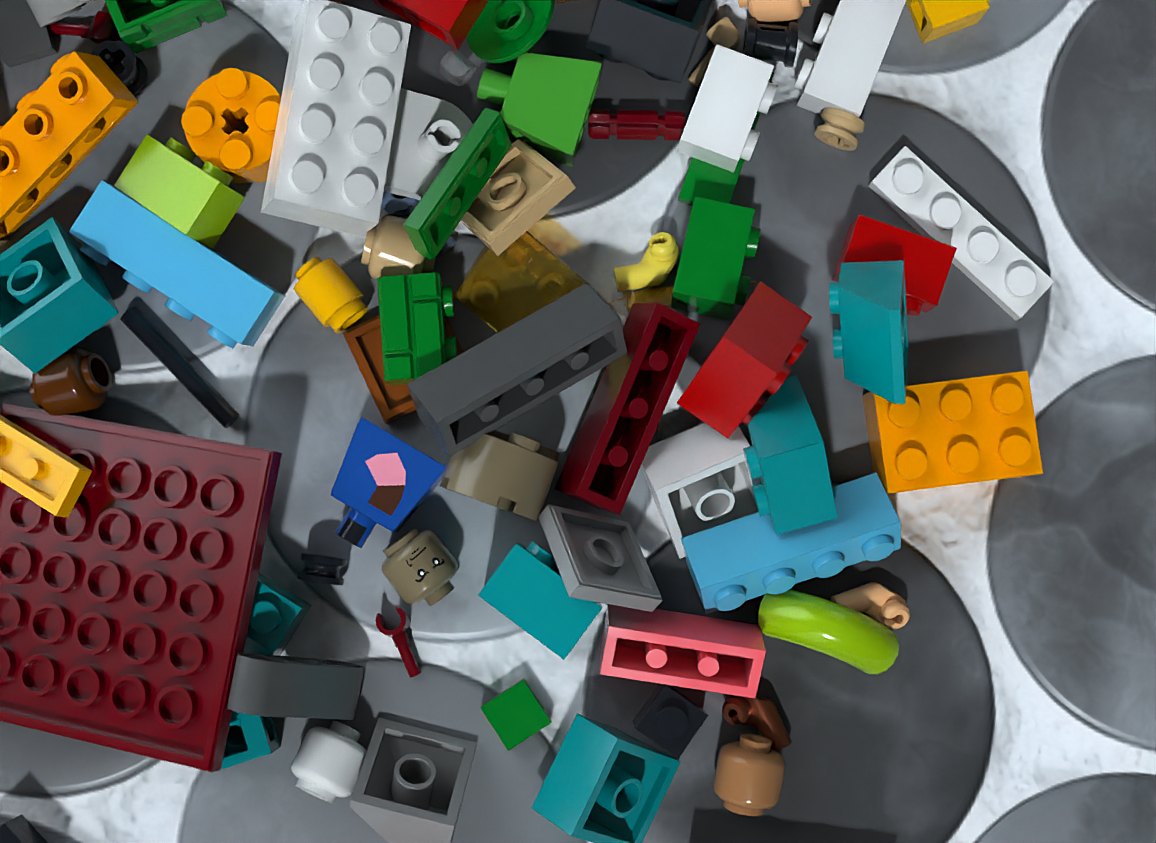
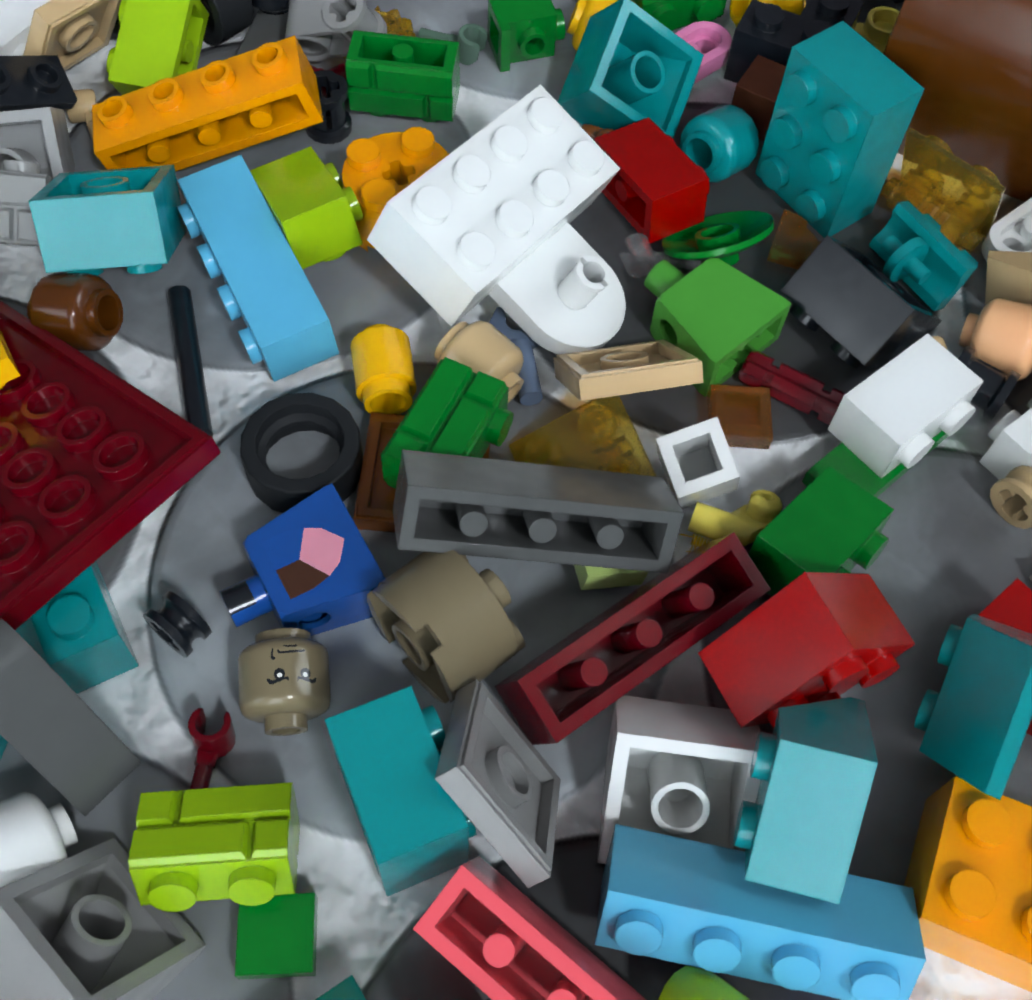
camera: 30 degrees right, 25 degrees down
(279, 387) = (293, 414): none -> black tyre
(449, 690) = (215, 845): none -> lime brick
(458, 184) = (578, 326): green tile -> none
(601, 248) = (698, 463): none -> white brick
(607, 172) = (742, 414): none -> clear orange tile

